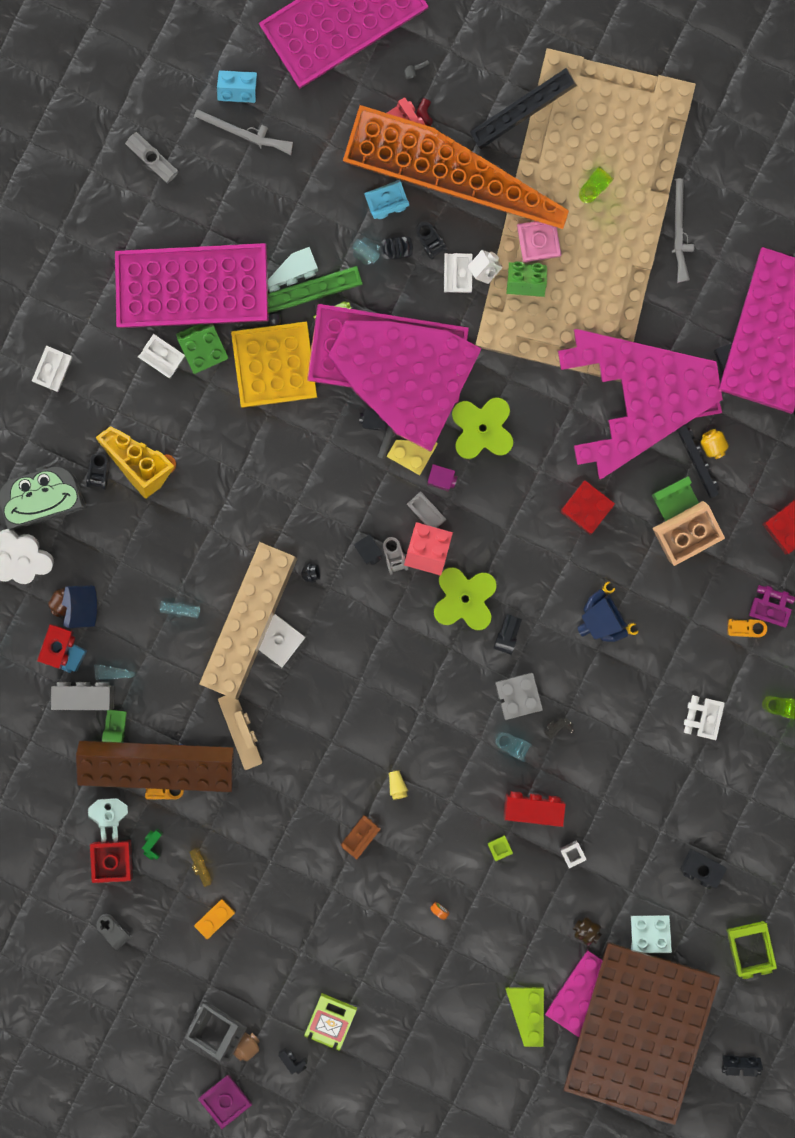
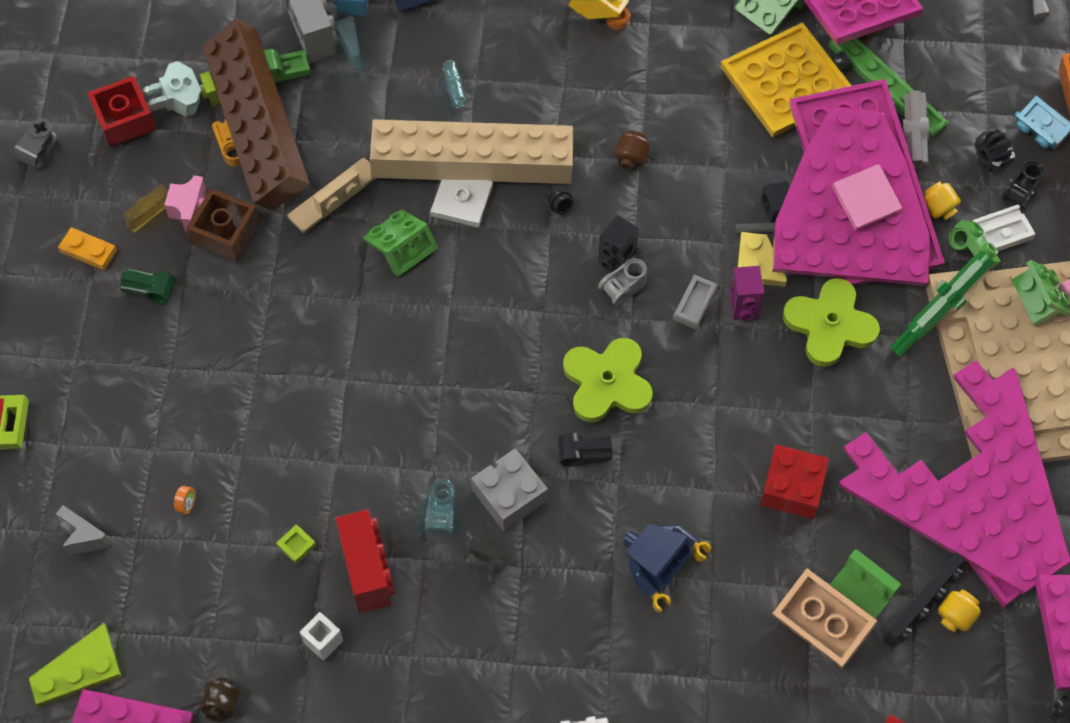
camera: 65 degrees right, 25 degrees down
(113, 792) = (208, 89): none -> lime plate
(151, 839) = (159, 147): green bracket -> none
(207, 837) = (185, 199): none -> bright pink brick
(239, 818) = (223, 224): none -> reddish brown brick
(266, 882) = (155, 286): none -> dark green piece
(290, 504) = (632, 149): none -> reddish brown head
(294, 267) = (909, 59): light aqua slope -> none
(297, 697) = (402, 241): none -> bright green bracket
(356, 294) = (916, 127): none -> light grey piece
(360, 837) = (249, 373): dark orange hinge -> none
(366, 251) = (971, 122): clear light blue piece -> none
(397, 786) = (332, 390): light yellow cone -> none
(408, 364) = (866, 197): none -> bright pink tile
(419, 305) = (941, 200): none -> yellow head
(428, 548) = (651, 309): coral brick -> none
(440, 982) = (83, 534): none -> light grey slope
(461, 300) = (975, 240): none -> bright green plate
(485, 266) = (1030, 246): white brick -> none
(504, 344) = (949, 296): none -> green piece

